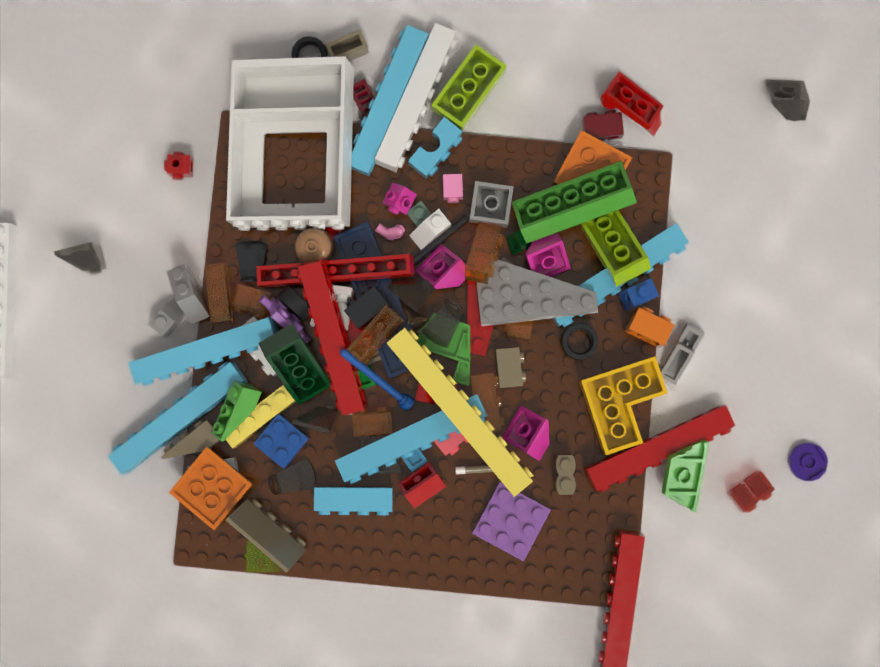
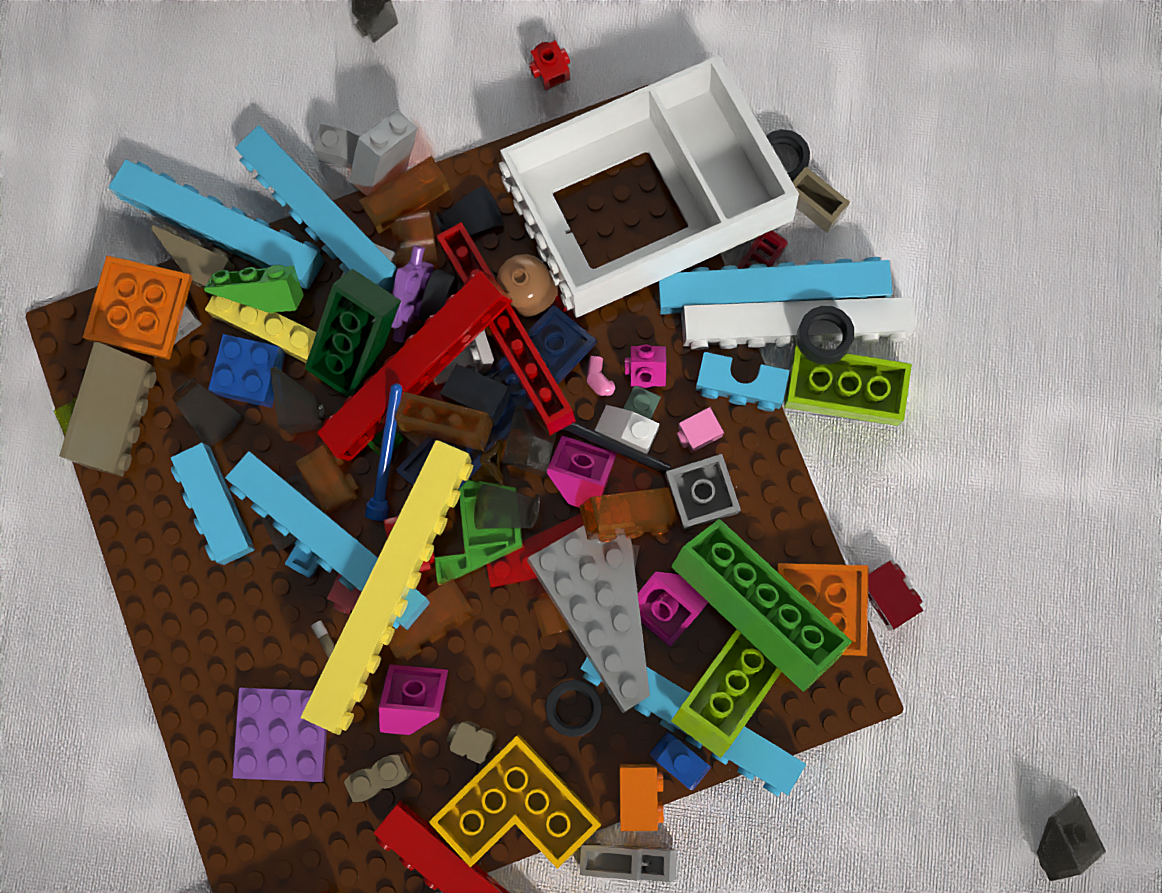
camera: 70 degrees right, 5 degrees down
(421, 485) = (272, 585): red brick -> none
(429, 71) = (835, 316): none -> black tyre
(509, 367) = (490, 628): dark tan piece -> none
(517, 243) = (666, 554): dark green tile -> none
(571, 408) = (472, 741): none -> dark tan brick
(633, 102) = (945, 621): red slope -> none

